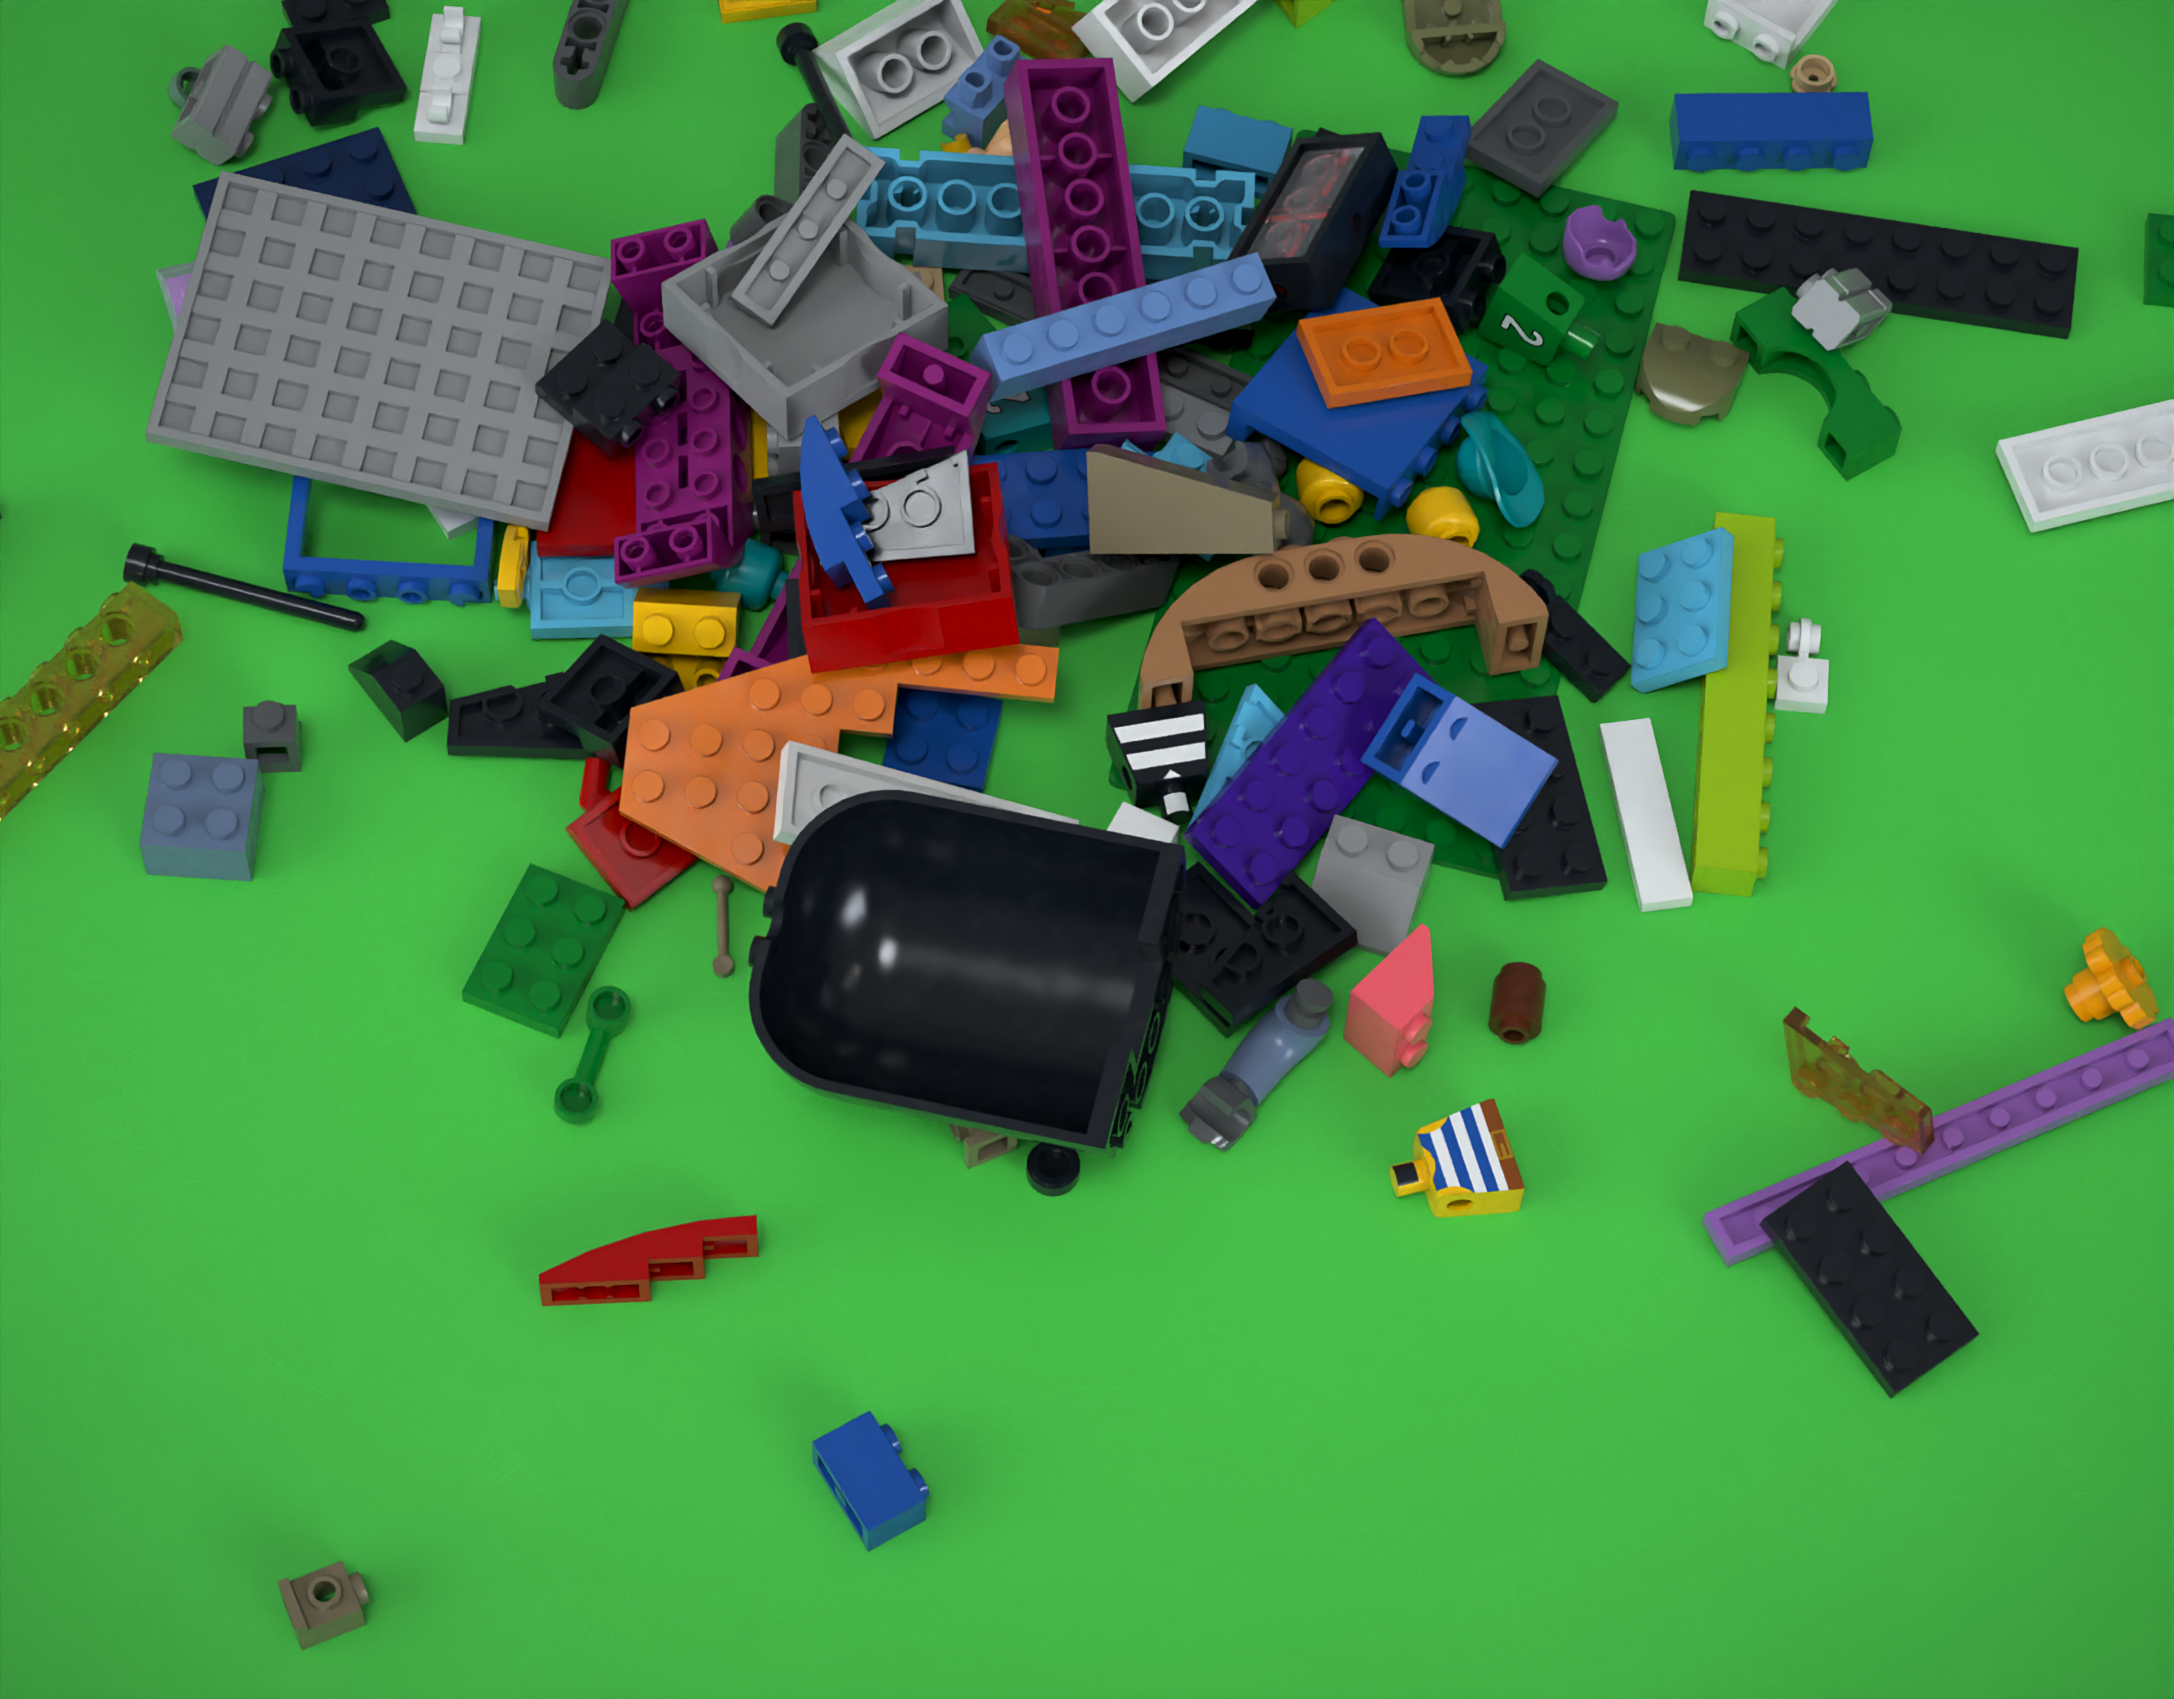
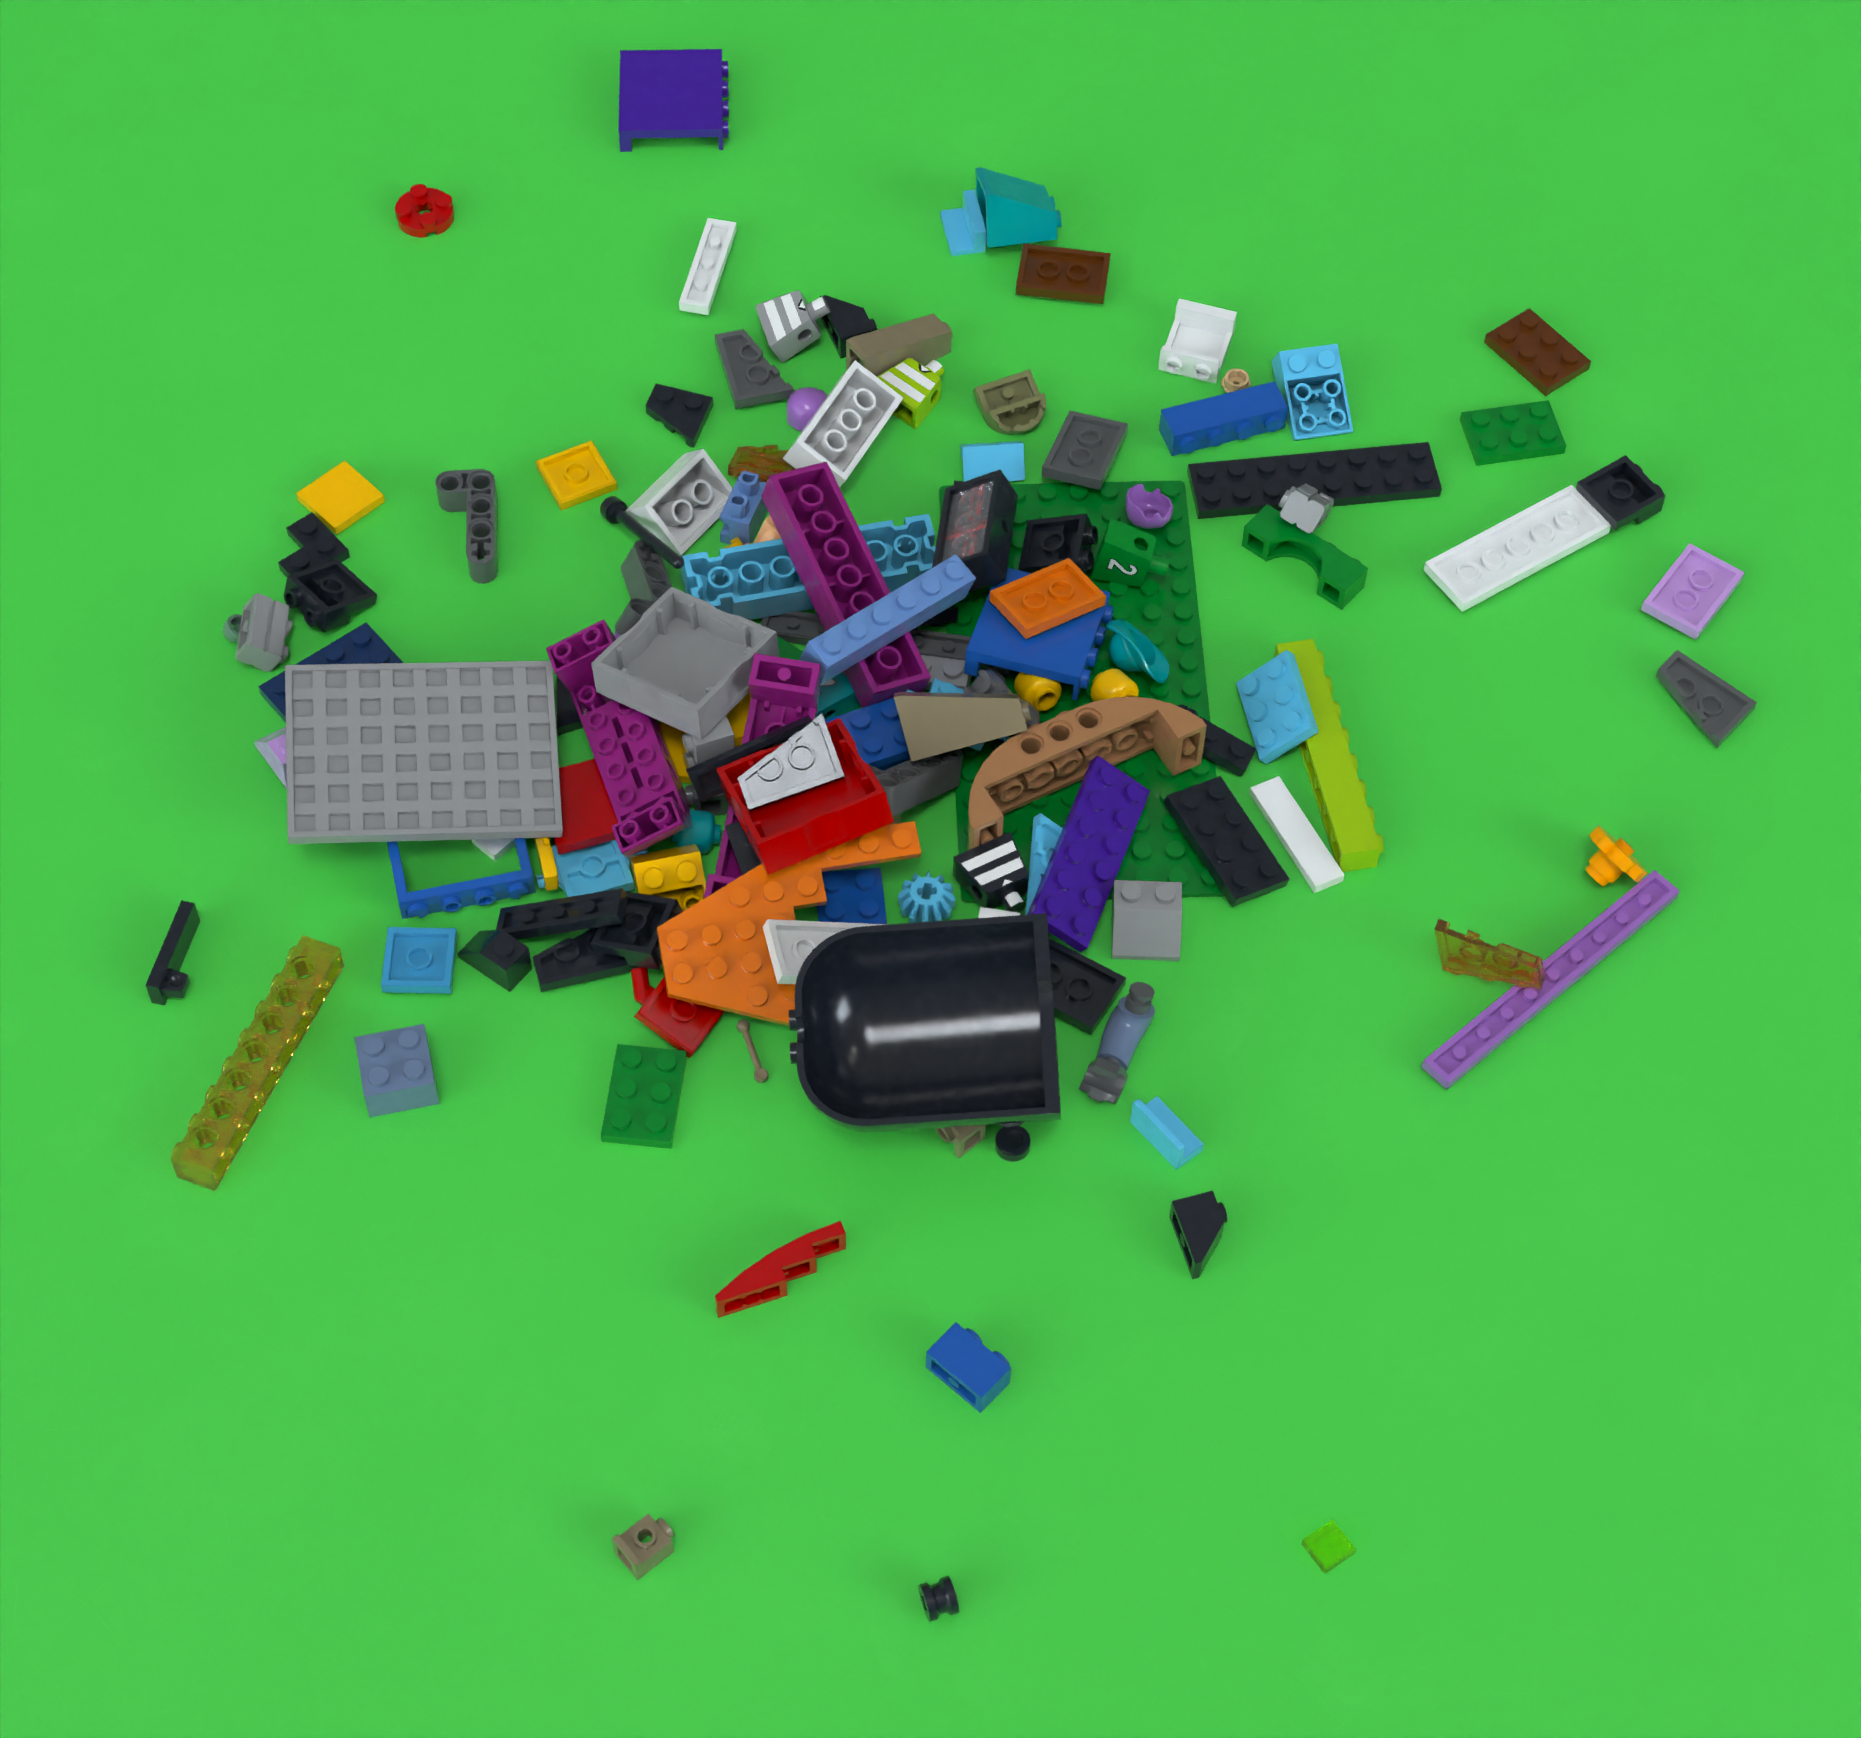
camera: 15 degrees left, 5 degrees down
(147, 567) = (310, 925): black piece -> none
(273, 726) = (425, 1001): dark grey brick -> none
(289, 659) = (419, 960): none -> dark azure plate
(447, 77) = (399, 582): white plate -> none
(510, 650) = (564, 914): none -> black plate
(605, 1018) = (698, 1127): green bar -> none
(610, 387) = (576, 737): black plate -> none
(806, 230) = (671, 610): light grey plate -> none
(835, 515) = (754, 773): blue slope -> none
(1034, 773) = (926, 899): none -> medium azure gear
(1236, 144) = (904, 501): dark azure brick -> none
(1278, 1372) = (1198, 1227): none -> black slope
(1283, 945) = (1109, 970): black wing -> none
(1283, 1214) = (1165, 1131): none -> medium azure panel
(1388, 106) = (989, 457): none -> medium azure panel
(1394, 1006) = (1193, 986): coral slope -> none
(1430, 186) = (1034, 494): blue slope -> none
(1459, 761) = (1179, 827): slope -> none
(1463, 1165) = (1266, 1071): torso -> none
(1517, 1003) = (1262, 965): copper brick -> none
(1689, 375) = (1227, 570): olive slope -> none
(1801, 679) = (1361, 730): white plate -> none
(1869, 1279) = (1536, 1072): black plate -> none
(1926, 123) = (1314, 391): none -> medium azure slope

